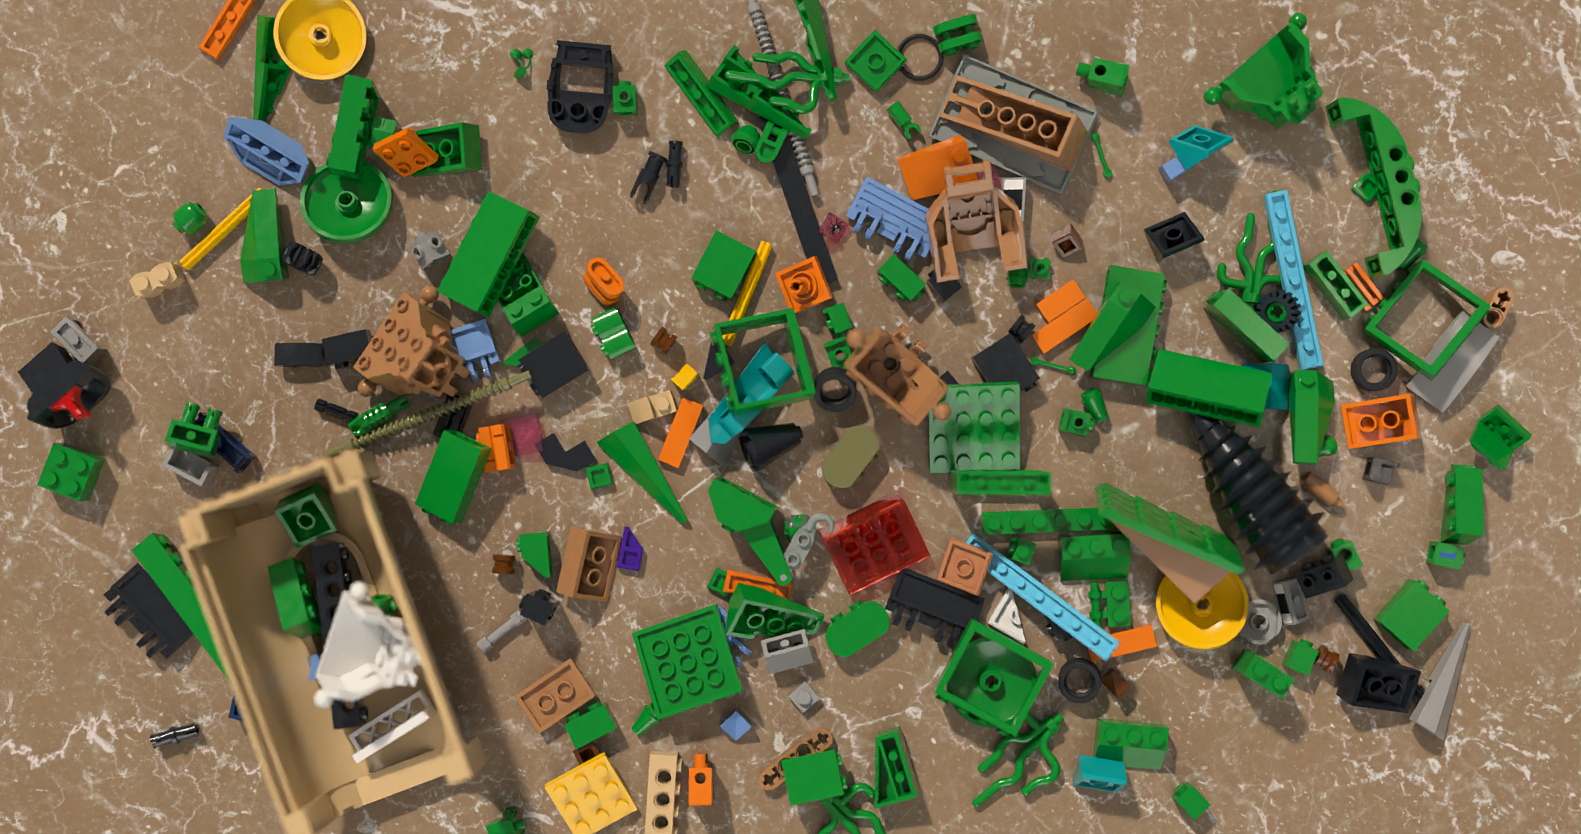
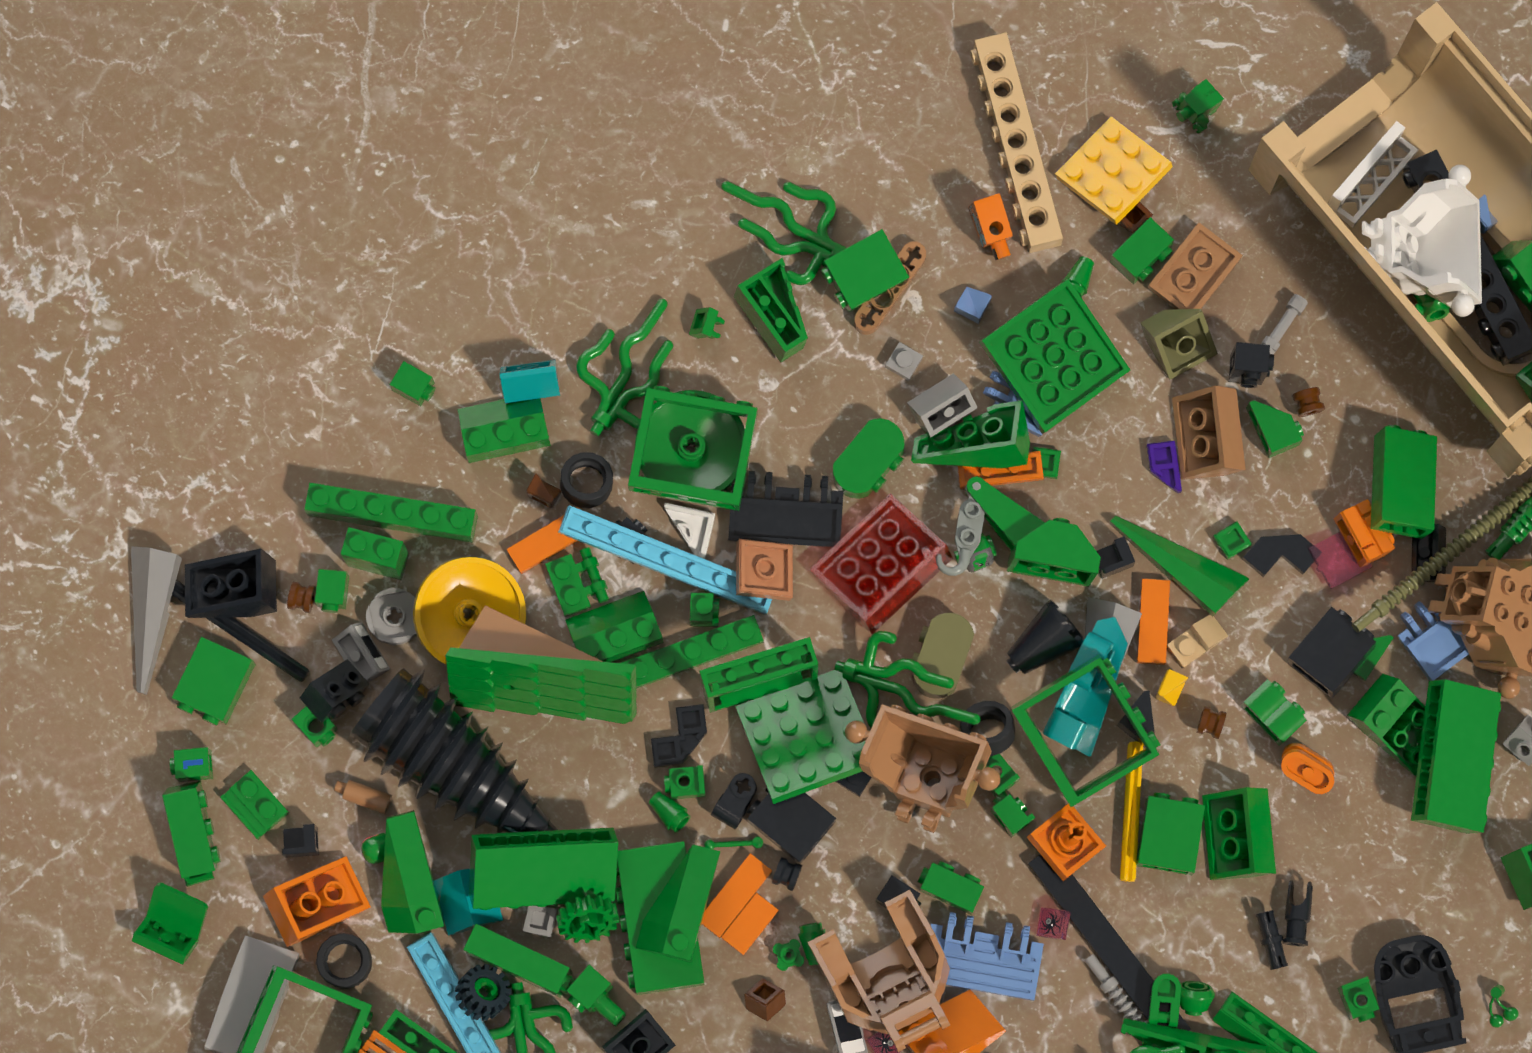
camera: 160 degrees right, 10 degrees down
(586, 645) = (1179, 339): none -> olive slope
(671, 250) = (1239, 833): none -> green slope
(694, 490) = (1115, 558): none -> black panel
(908, 454) = (871, 679): none -> green plant
(949, 776) = (704, 323): none -> green tile
(1045, 394) = (733, 805): none -> black piece
(1073, 450) = (676, 749): none -> black tile
(1184, 340) = (587, 918): none -> green gear
(1197, 282) = (591, 993): none -> green brick
(1217, 351) = (540, 921): none -> light grey plate
(1238, 703) = (391, 512): none -> green brick
(1405, 510) = (254, 804): none -> green plate

